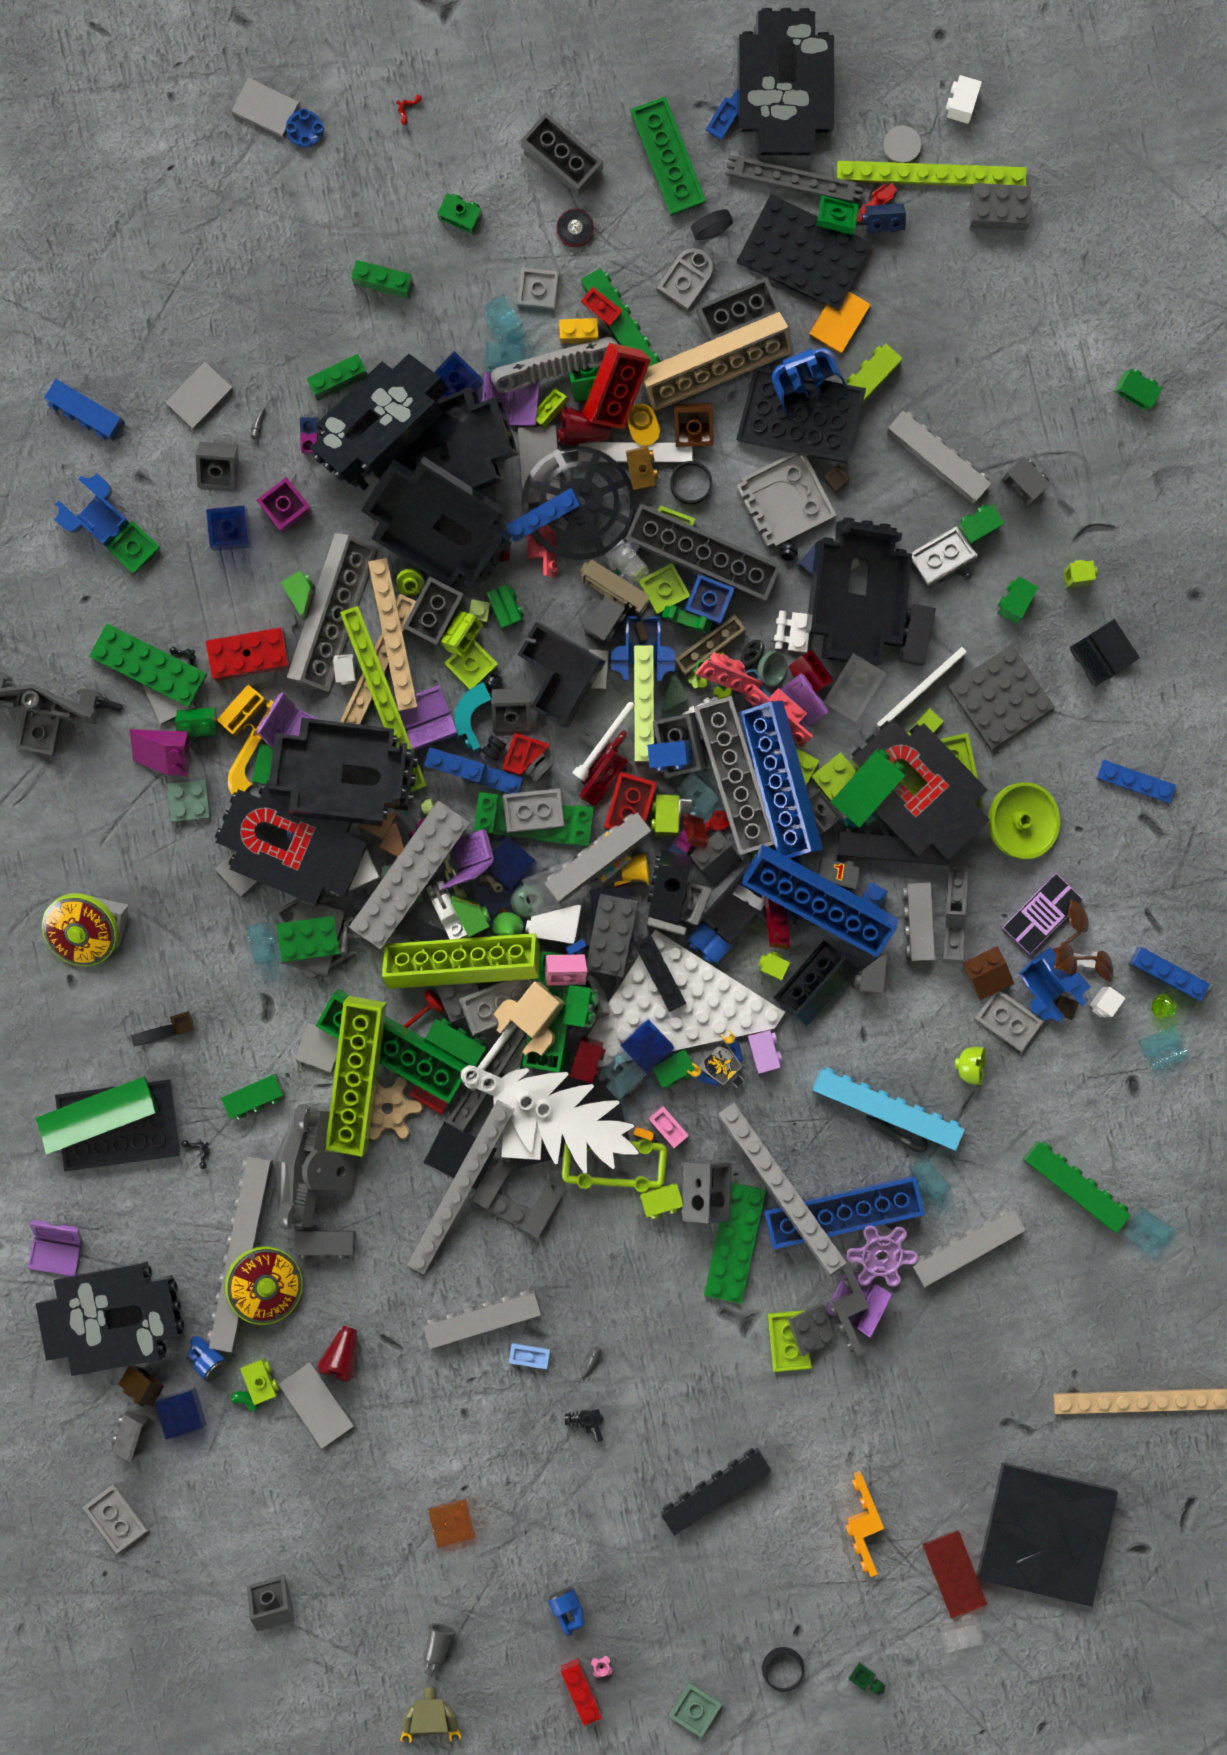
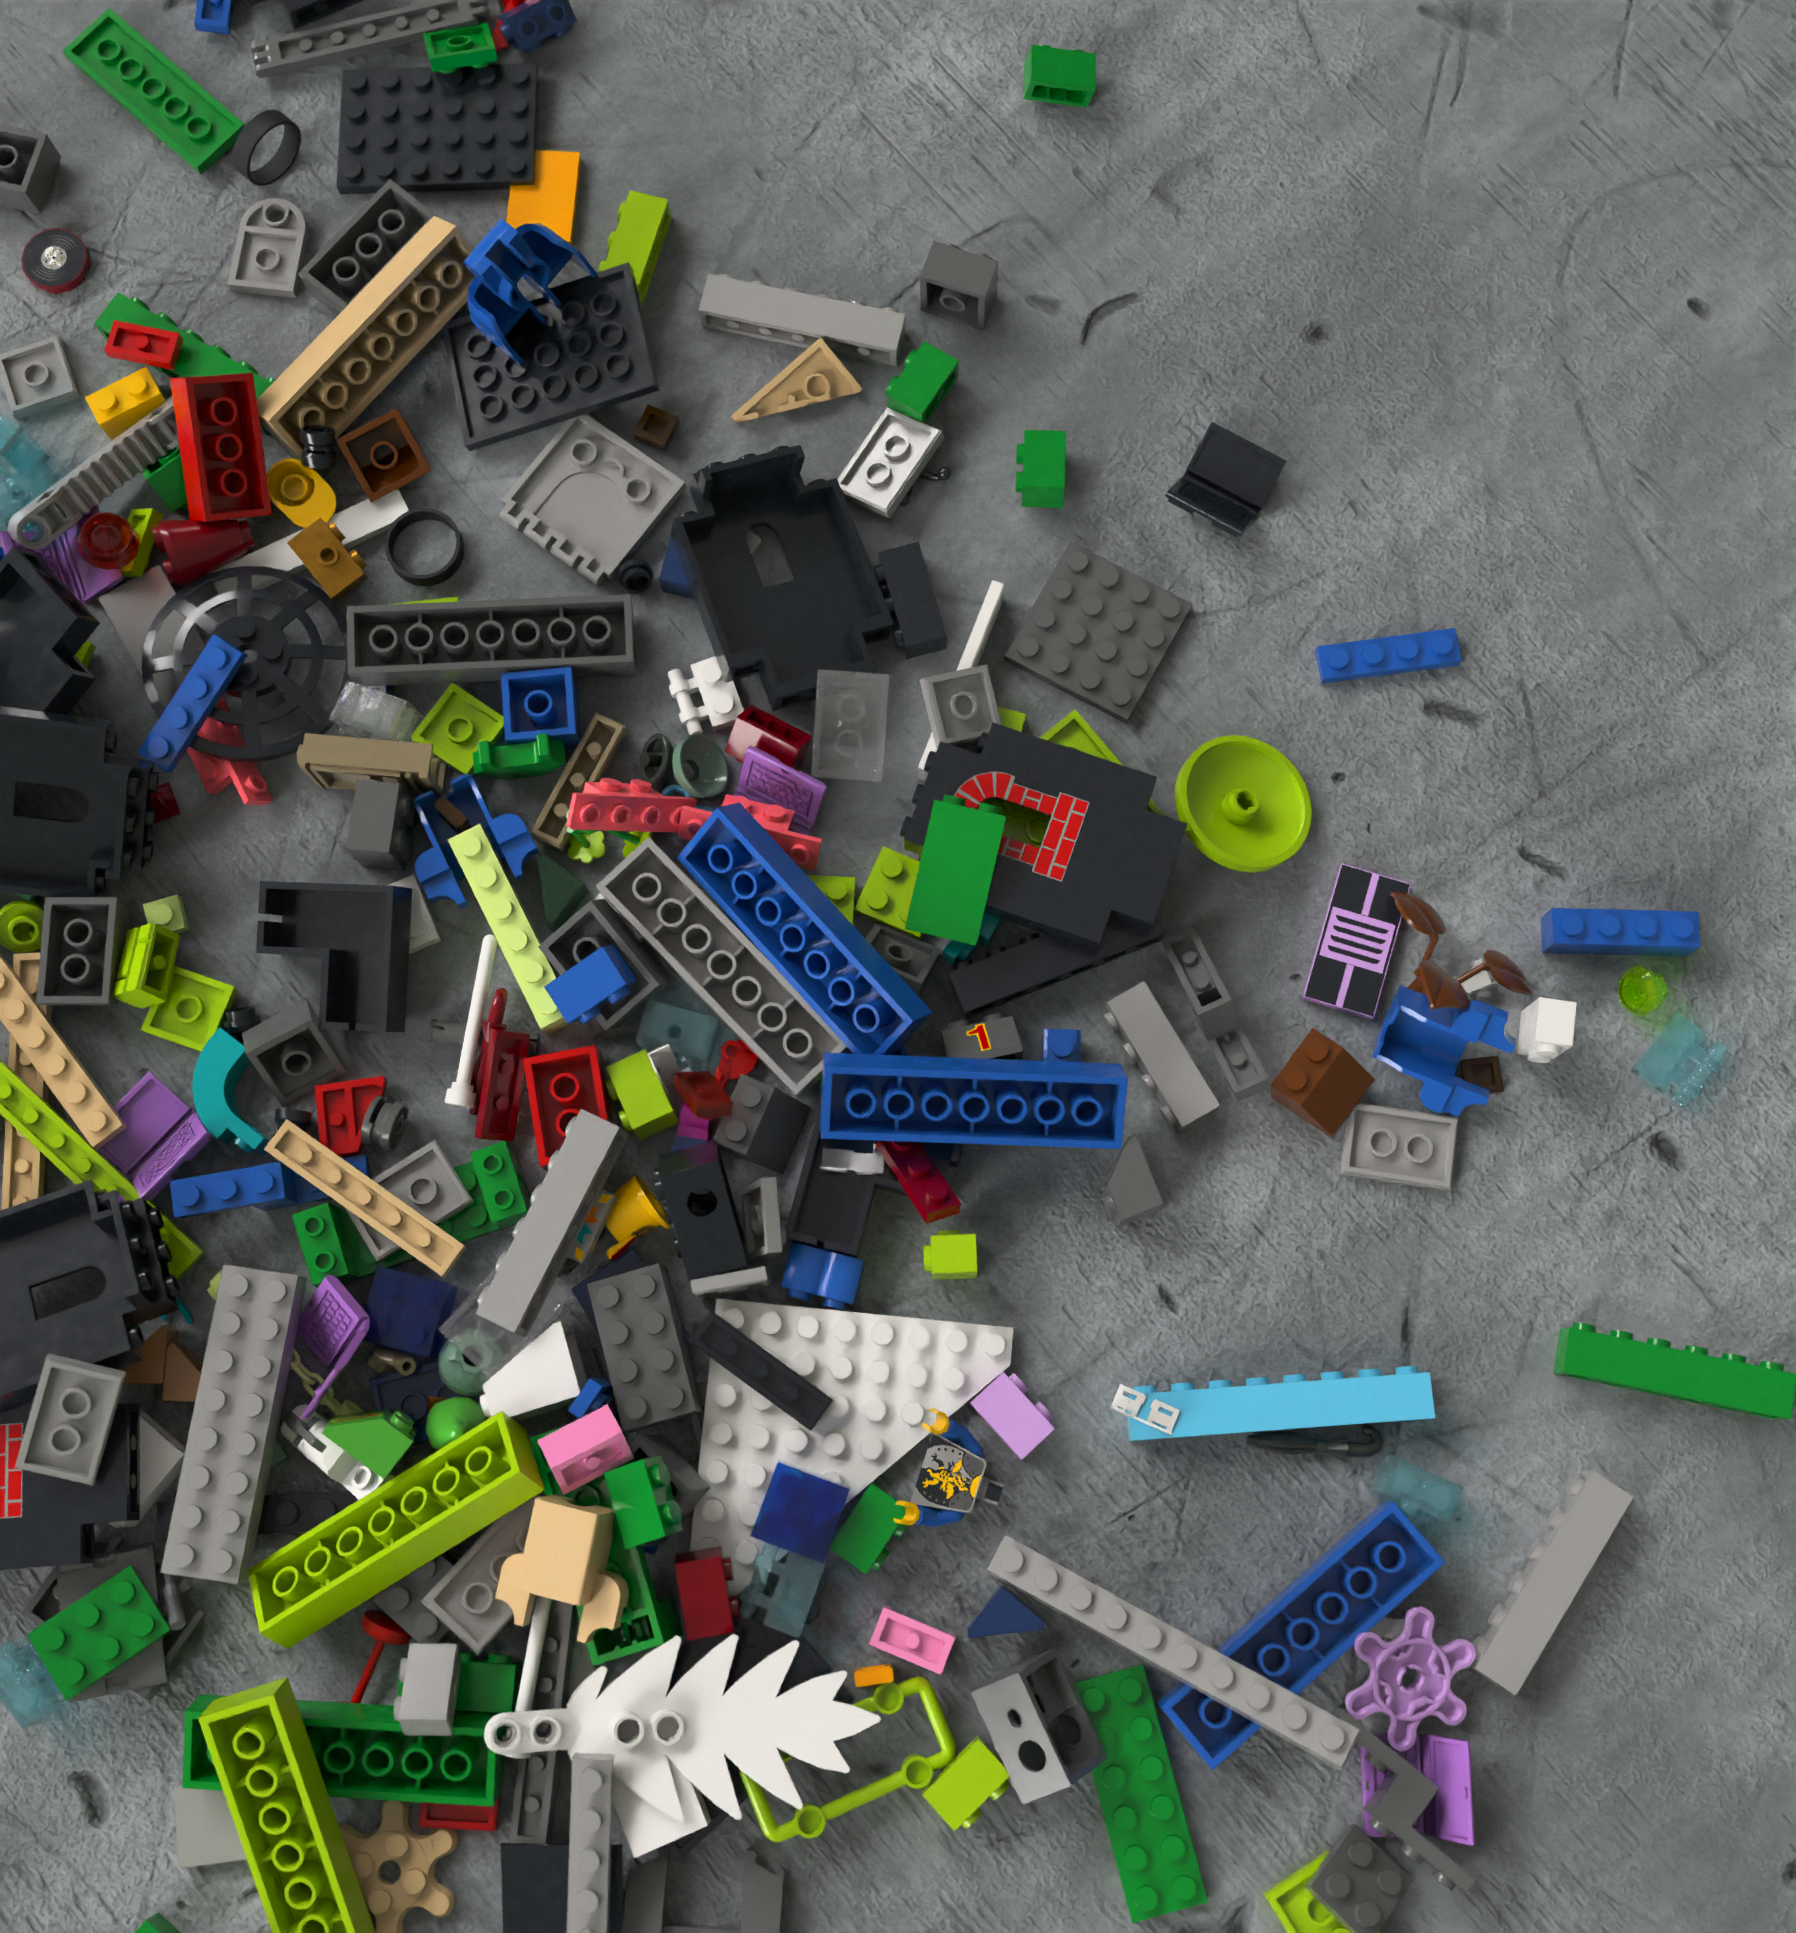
camera: 25 degrees left, 10 degrees down
(341, 839) = (70, 1419): none -> light grey tile
(445, 1040) = (428, 1689): none -> light grey brick
(504, 606) = (204, 889): green brick -> none
(516, 801) = (365, 1198): none -> tan plate
(537, 404) = (108, 541): none -> clear red hat
(663, 407) = (318, 446): none -> black wheel
(714, 1136) = (1004, 1615): none -> dark blue slope
(815, 982) = (1039, 1250): black slope -> none
(829, 1084) = (1134, 1405): none -> white piece
(913, 703) = (960, 704): none -> light grey tile
(926, 491) = (807, 380): none -> tan wing
(972, 1065) = (1379, 1254): lime cylinder -> none
(1080, 573) = (1120, 379): lime brick -> none

